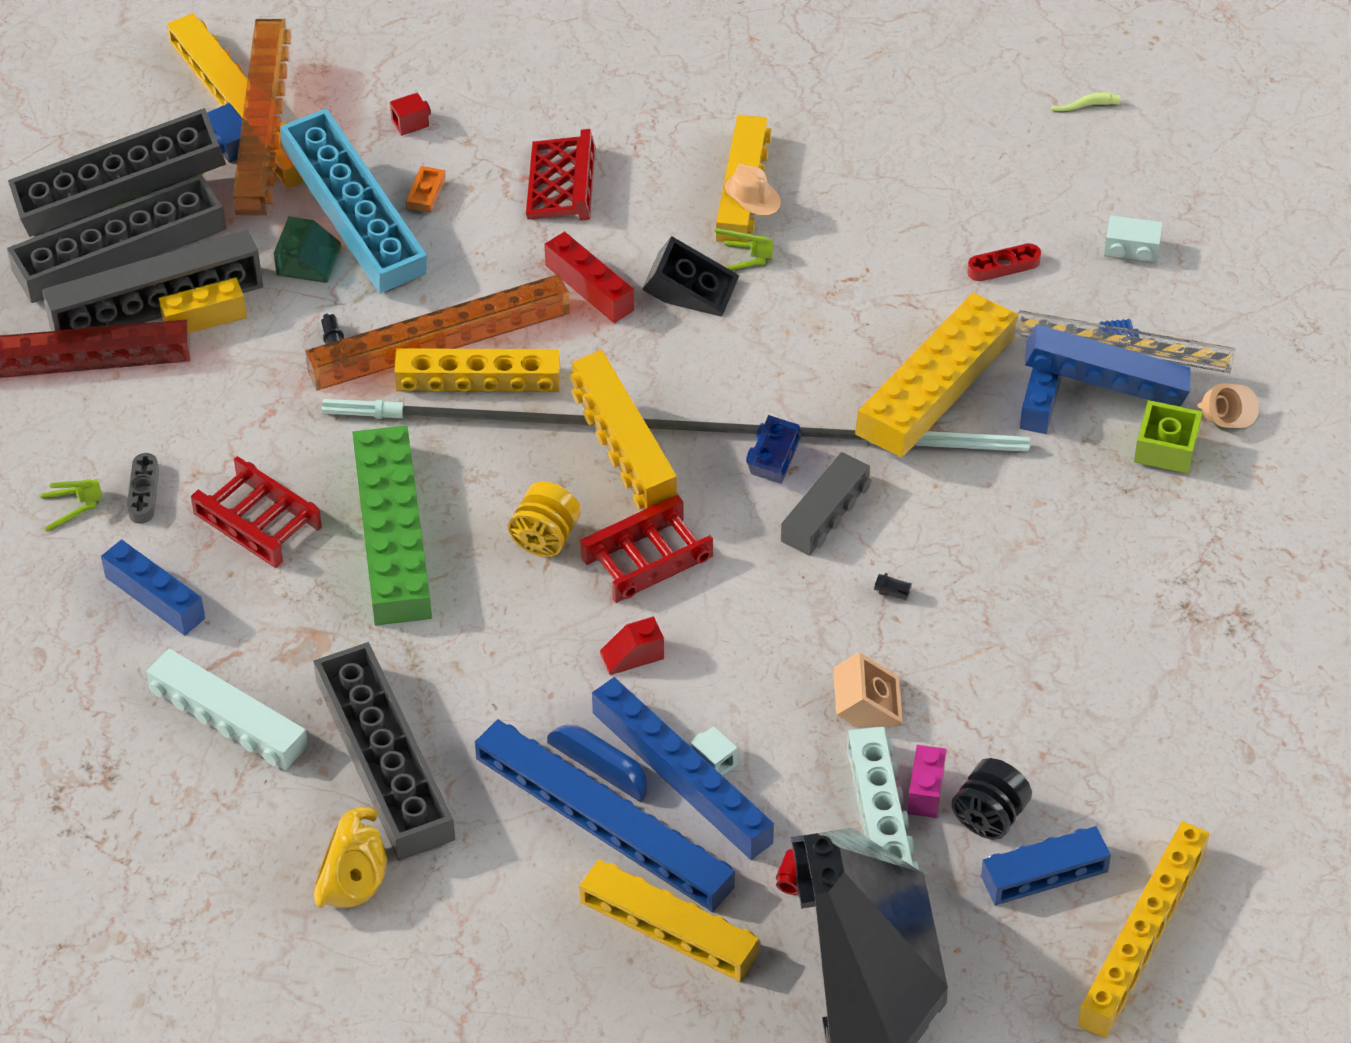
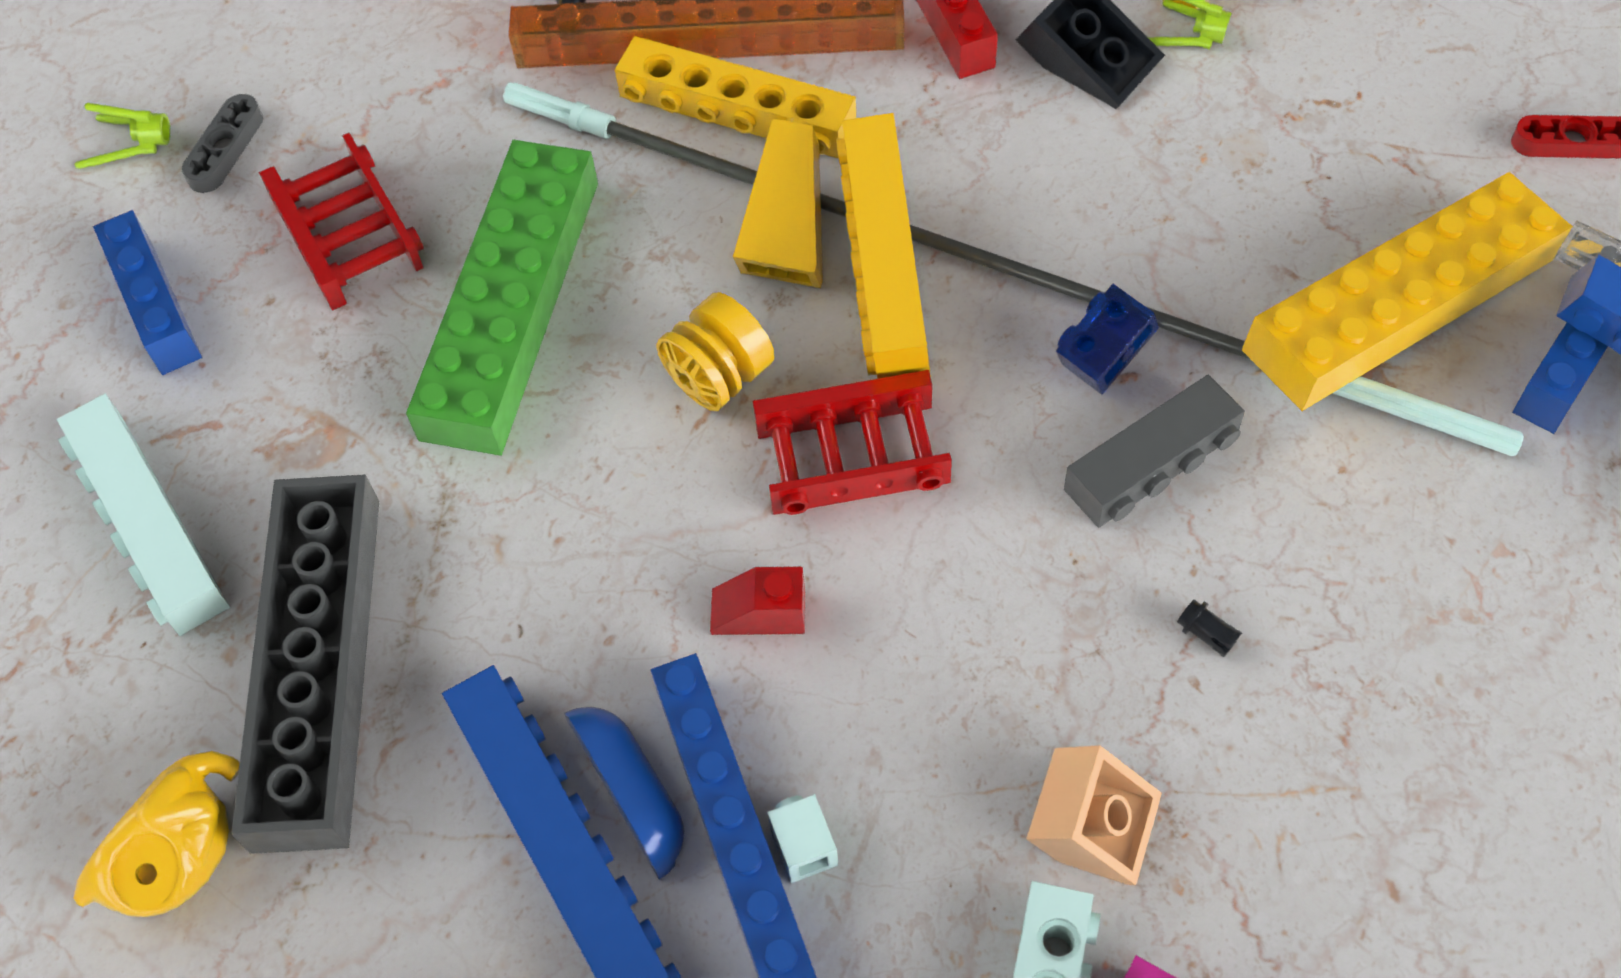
camera: 25 degrees right, 10 degrees up
(548, 432) = (783, 214): none -> yellow slope

